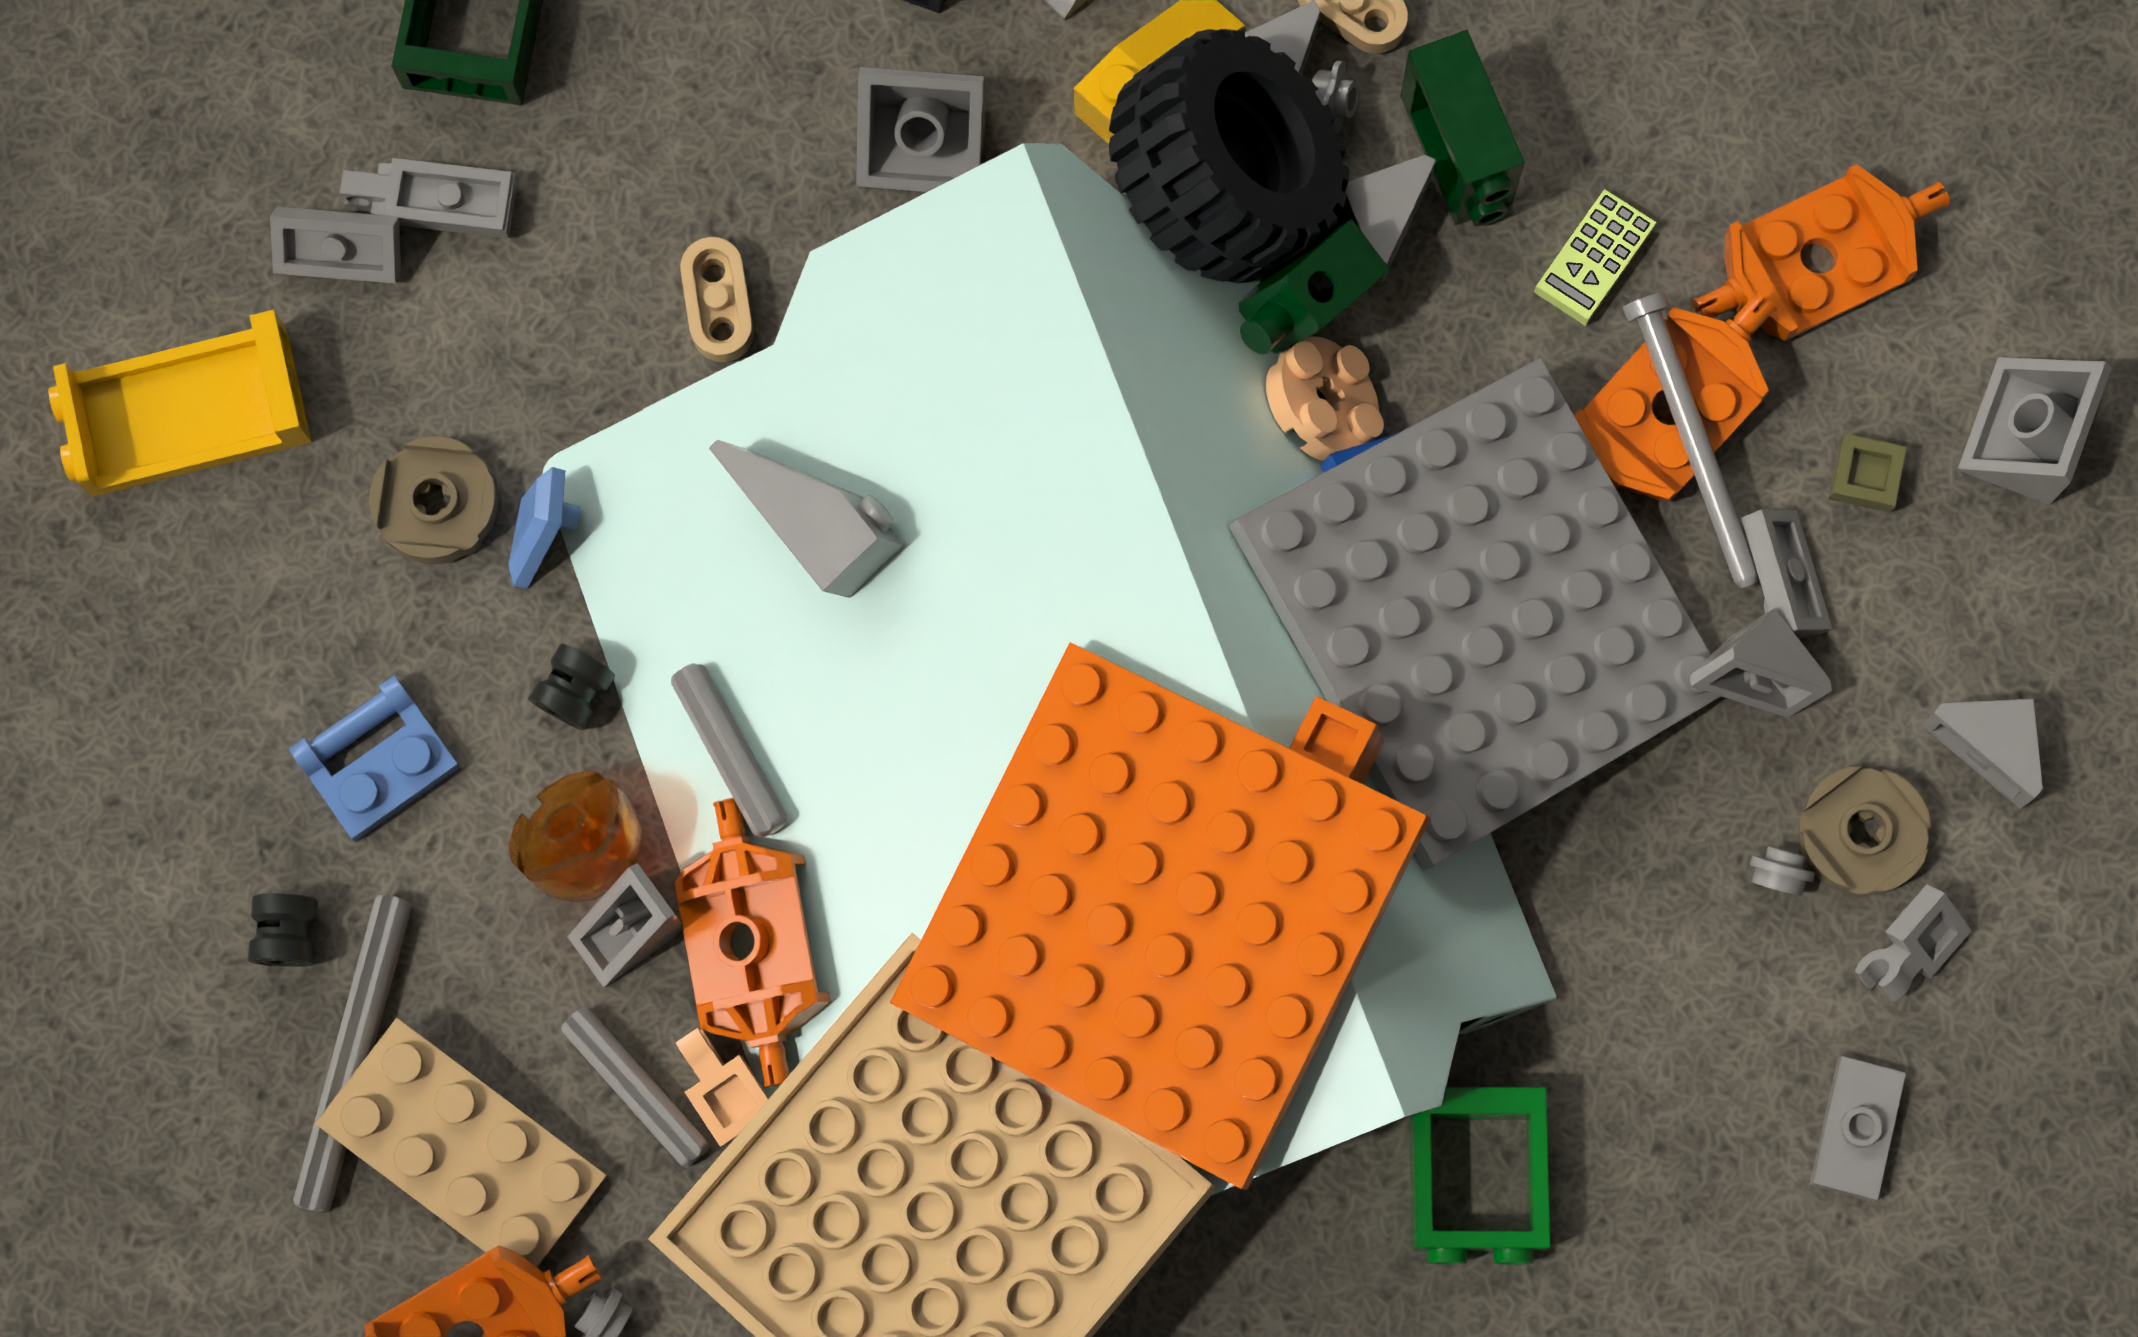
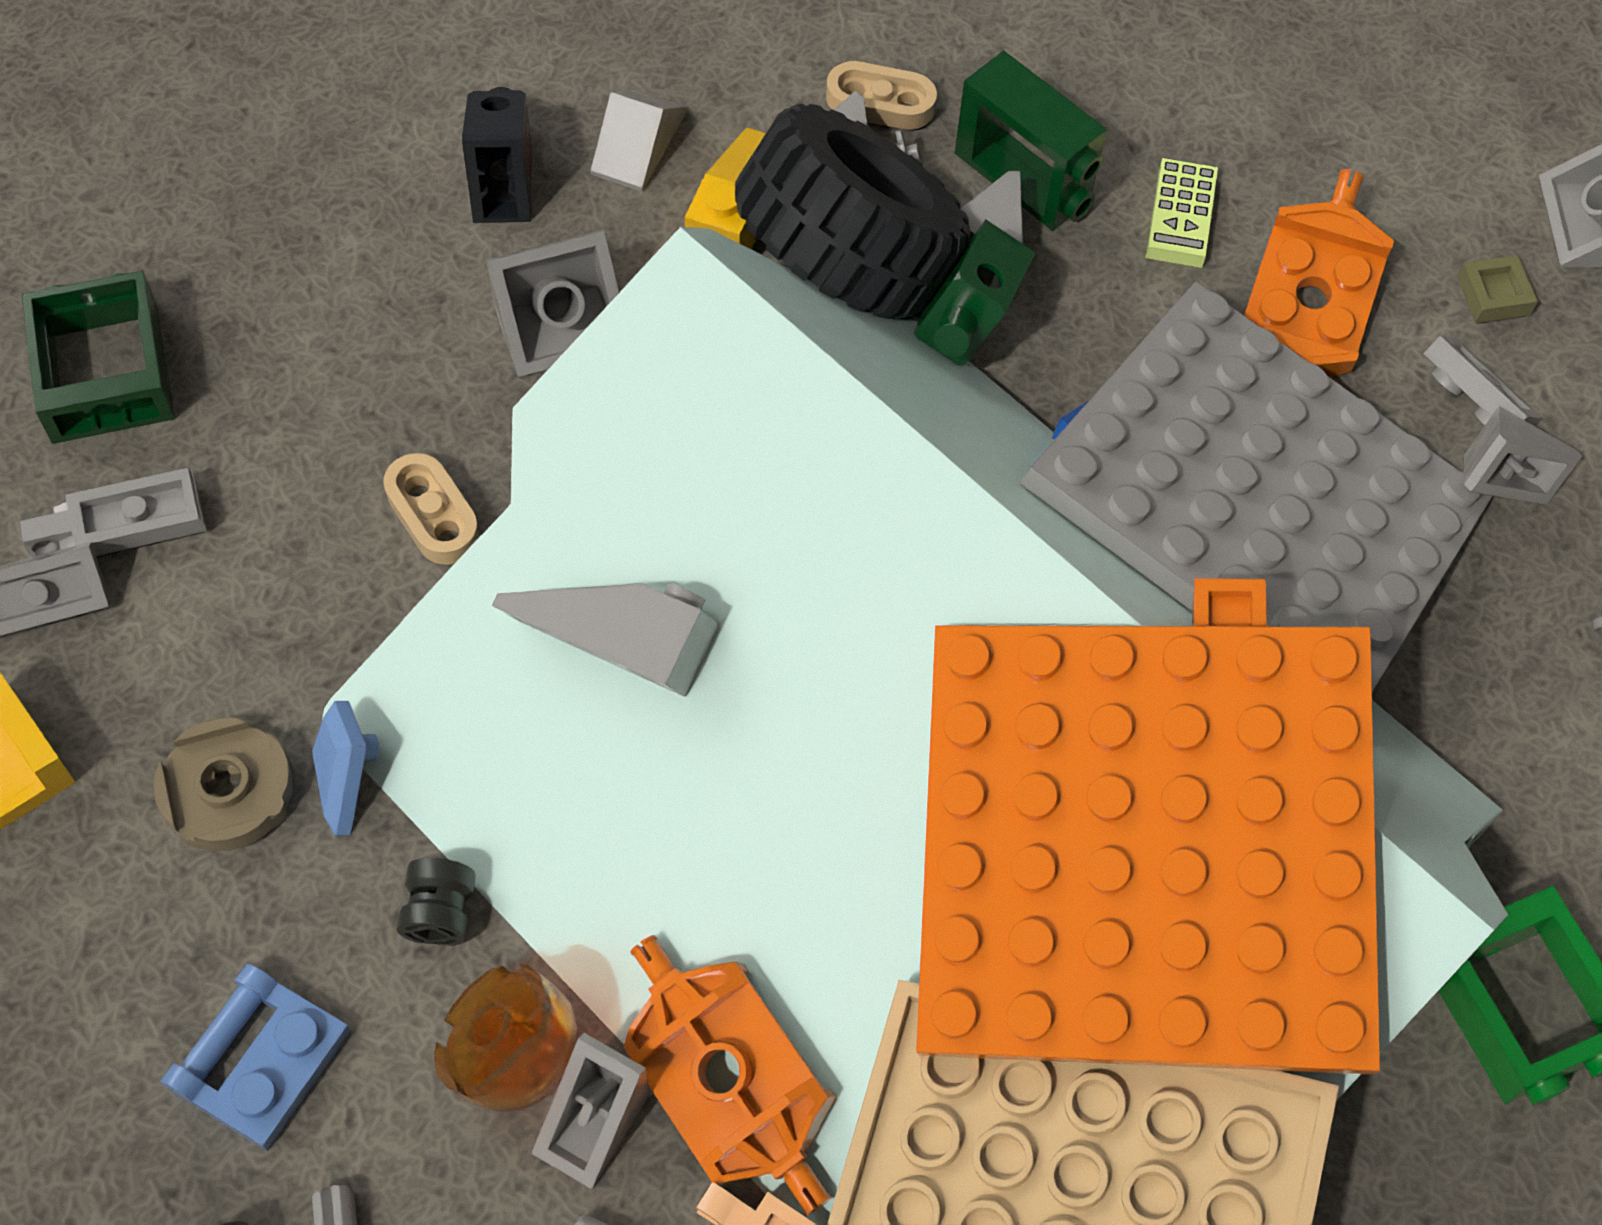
camera: 30 degrees left, 15 degrees down
(729, 750) = (625, 893): light grey axle -> none
(1341, 375) = (1021, 380): light nougat plate -> none
(1693, 435) = (1347, 298): light grey bar -> none
(1856, 220) = (1371, 111): orange plate -> none

